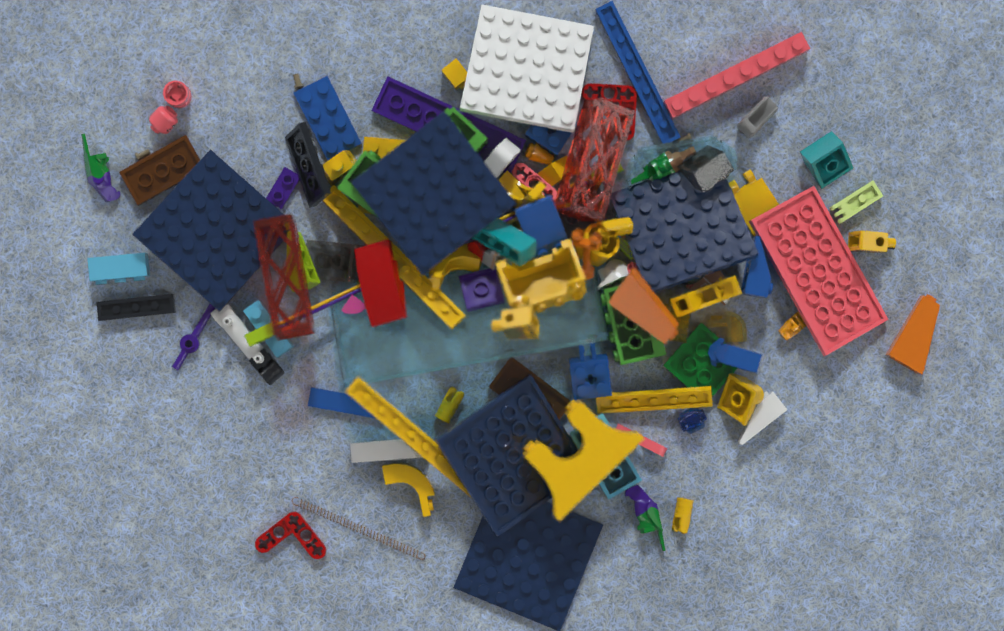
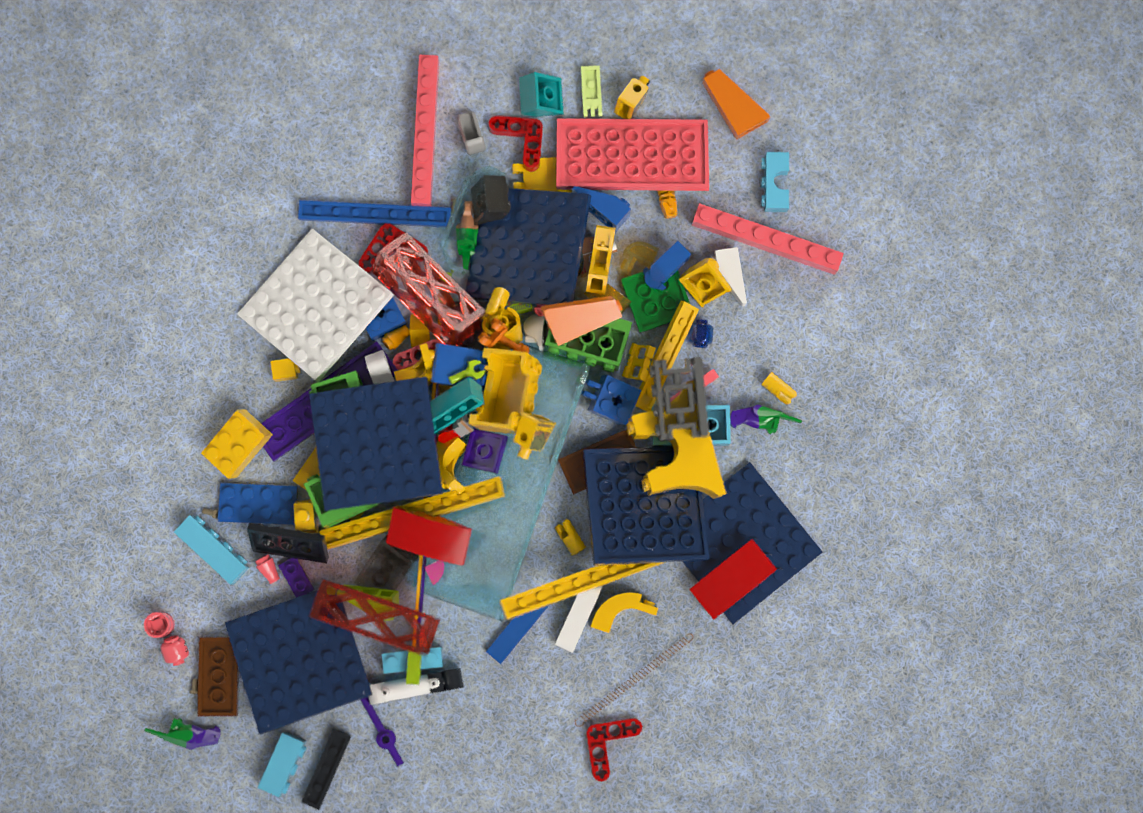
camera: 65 degrees left, 5 degrees down
(266, 101) = (211, 549): none -> medium azure brick
(277, 159) = (267, 568): none -> coral cone
(368, 70) = (236, 443): none -> yellow brick
(491, 566) = (733, 579): none -> red slope
(541, 237) = (468, 372): none -> lime bar
(629, 449) = (694, 397): none -> dark grey fence
(635, 376) = (635, 361): none -> yellow piece
(786, 163) = (525, 131): none -> red beam
(810, 432) = (767, 239): none -> coral brick
(850, 417) = (774, 198): none -> medium azure arch

